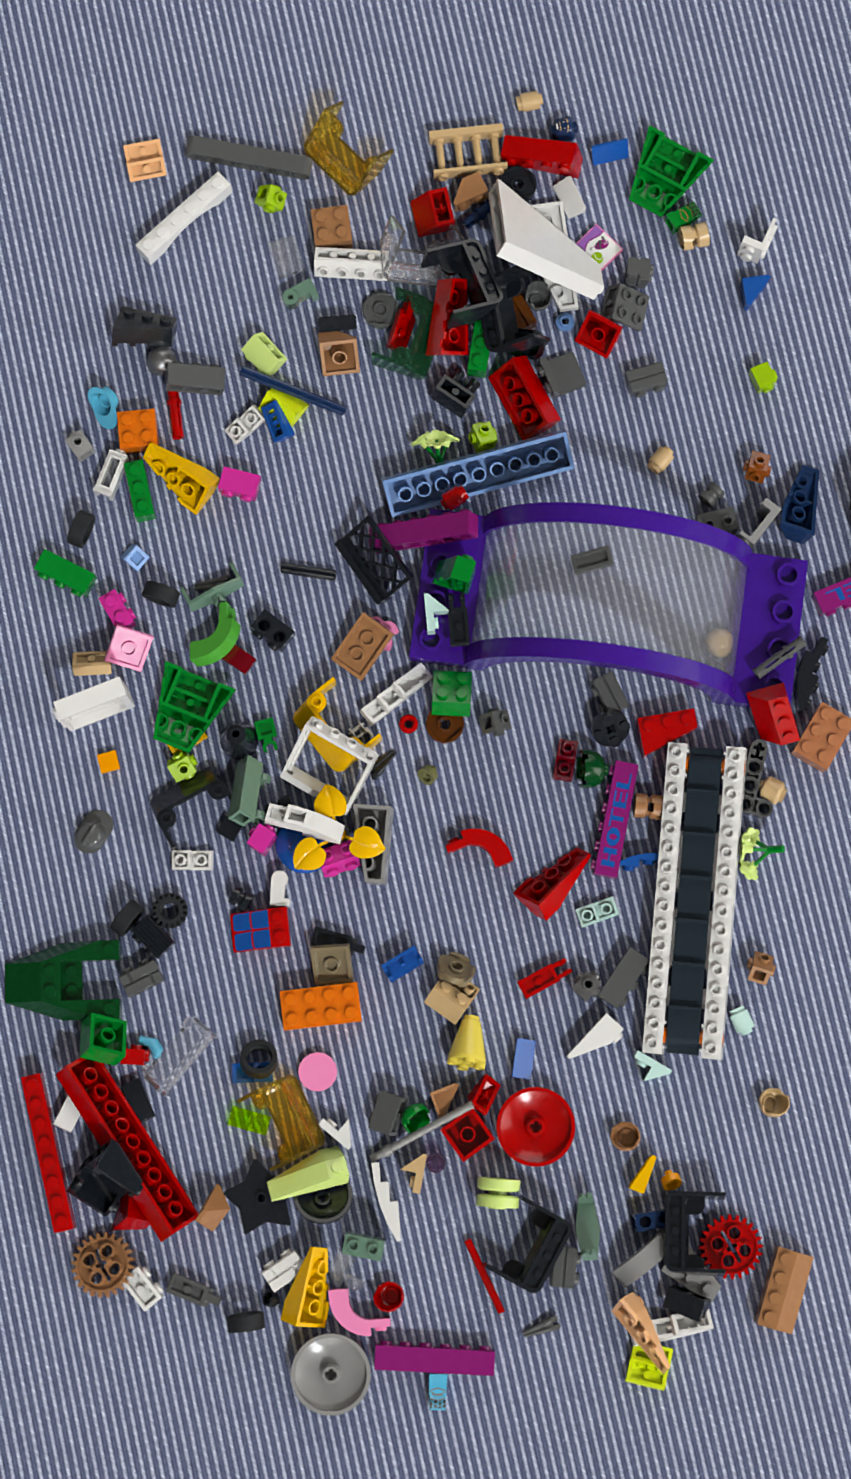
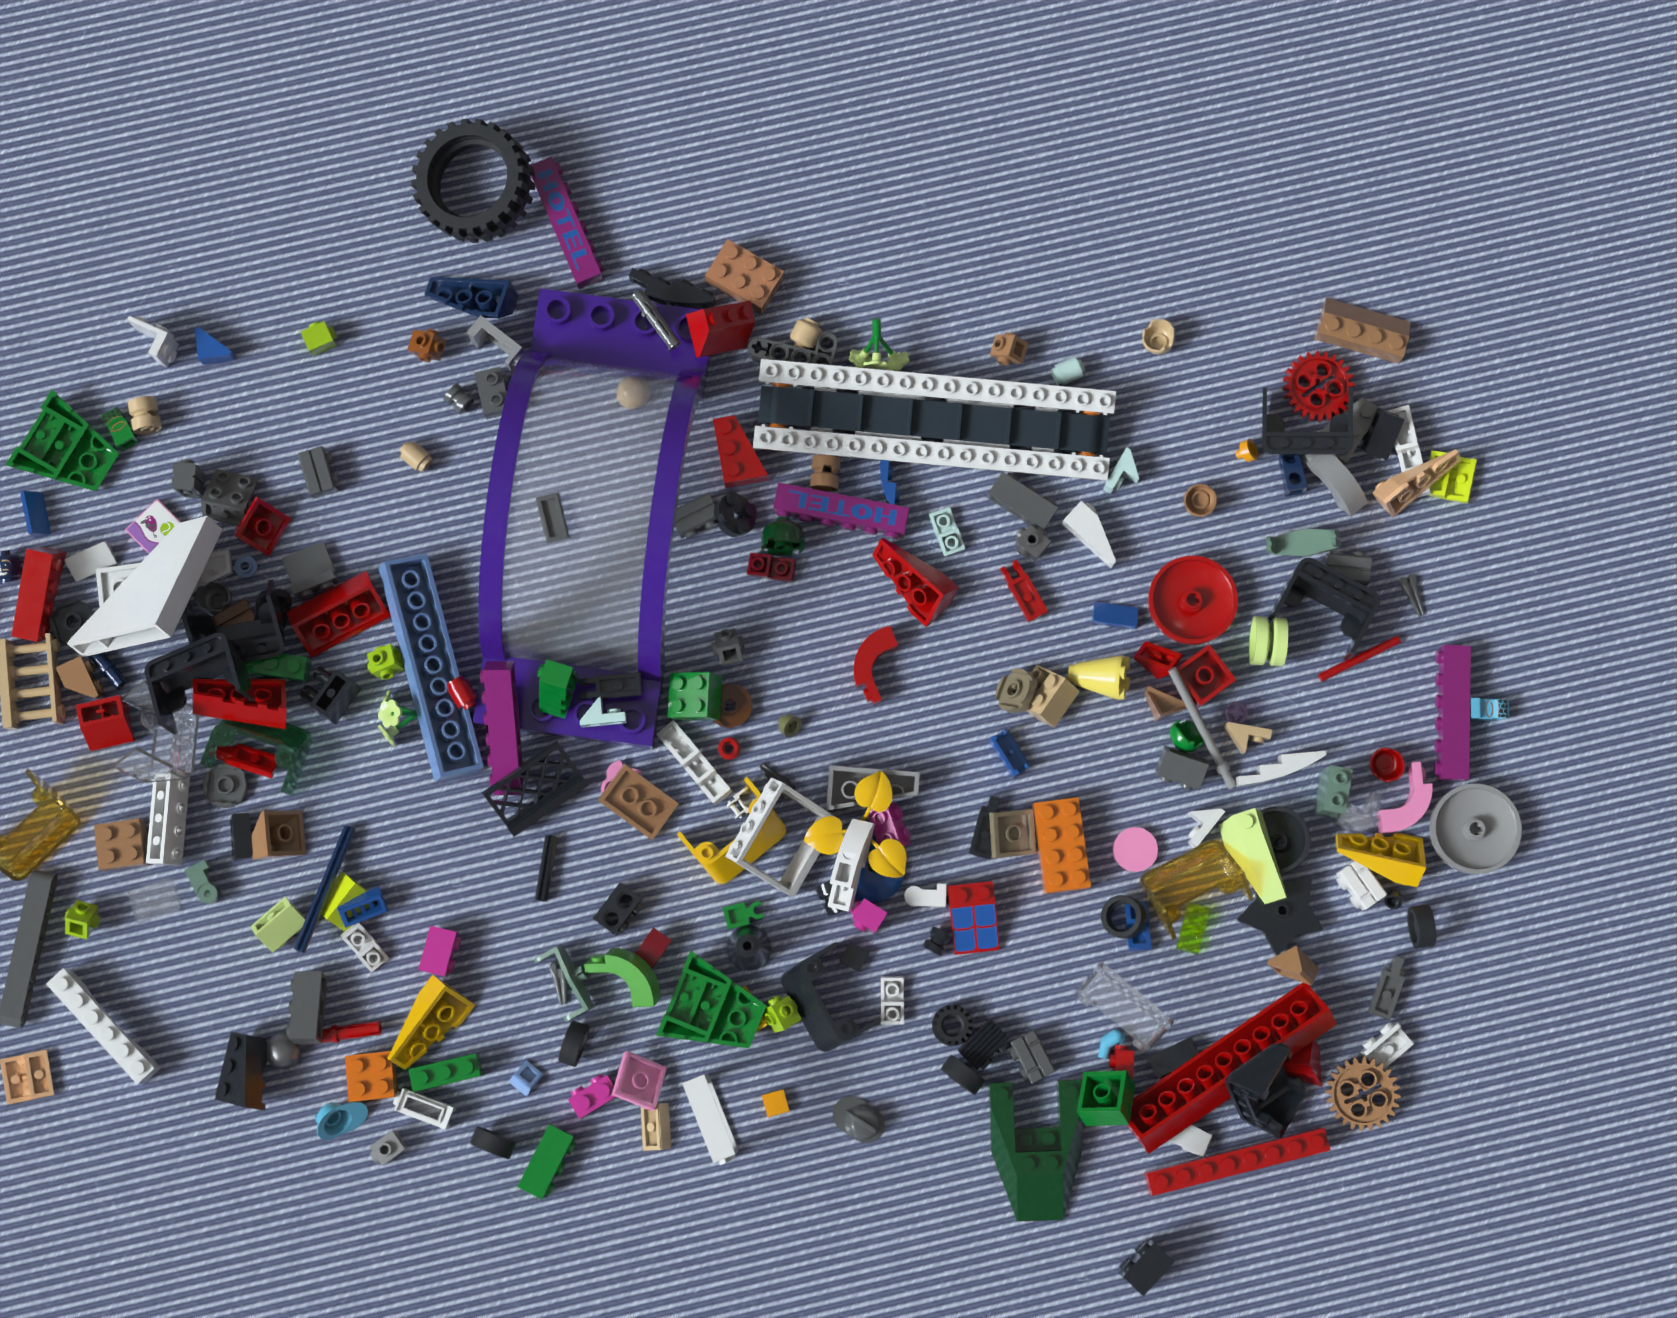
camera: 90 degrees left, 0 degrees up
(245, 791) = (813, 935): sand green brick -> none
(642, 1177) = (1245, 482): yellow slope -> none

